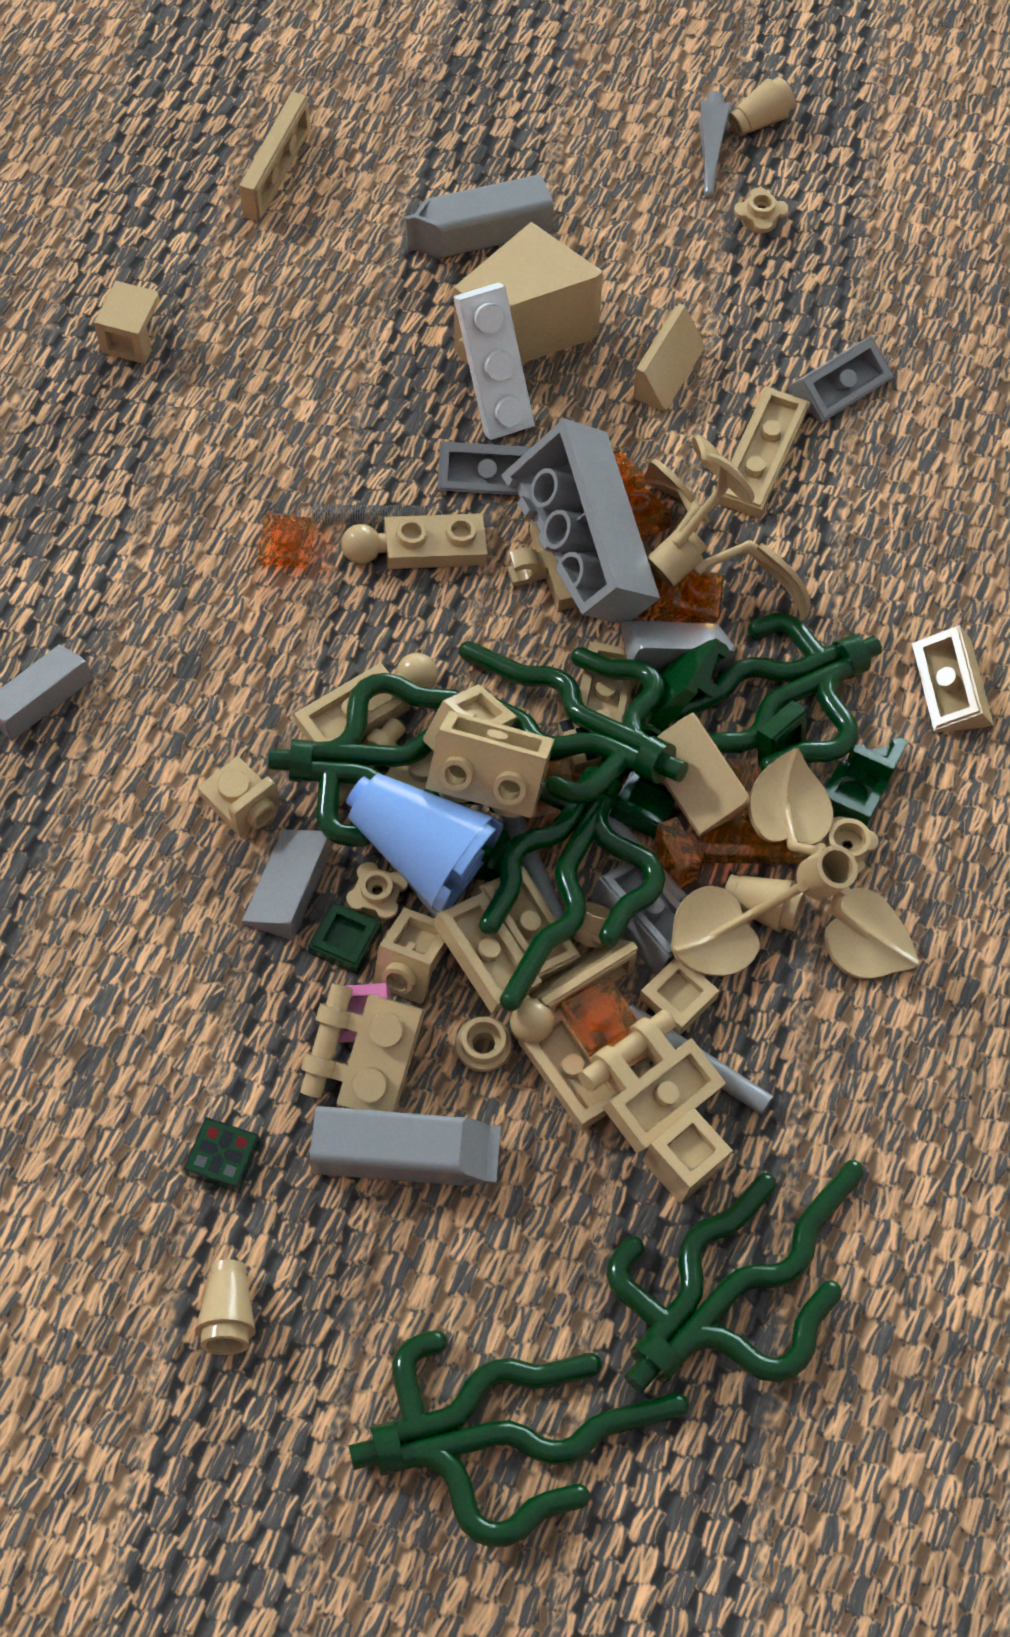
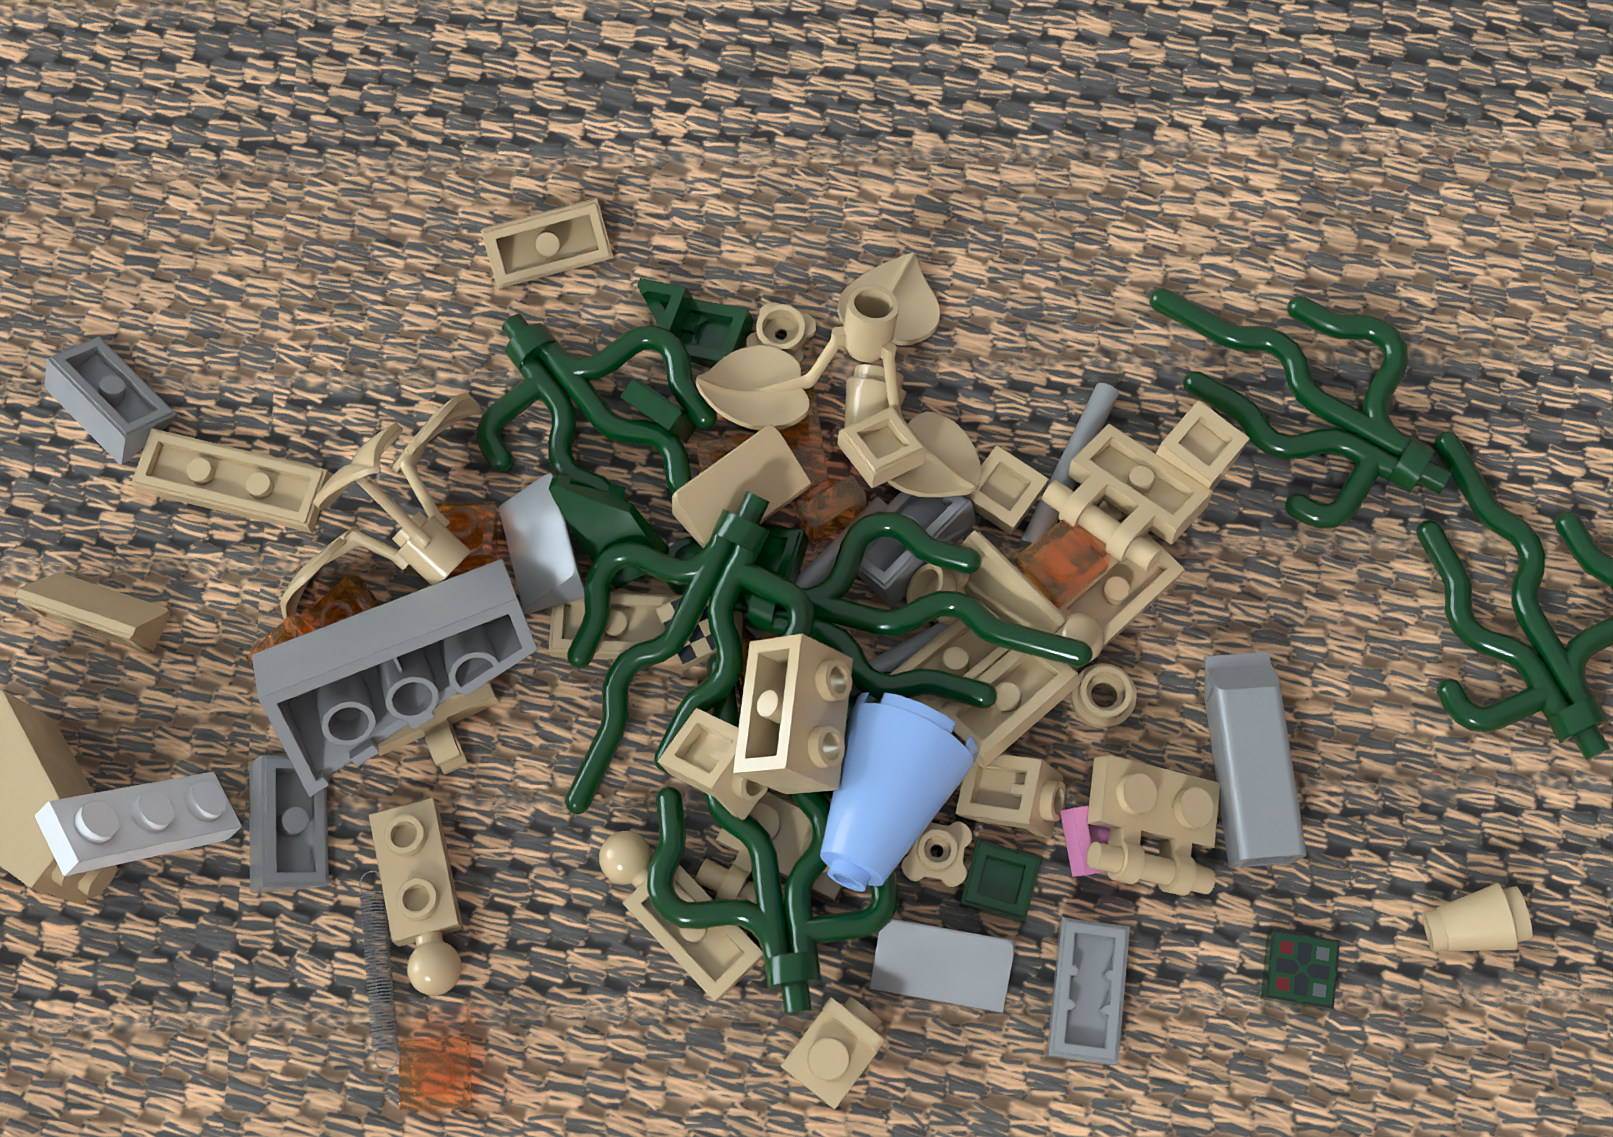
camera: 95 degrees left, 10 degrees up
(242, 982) = (1088, 991): none -> light grey plate
(722, 887) = (882, 447): none -> tan tile

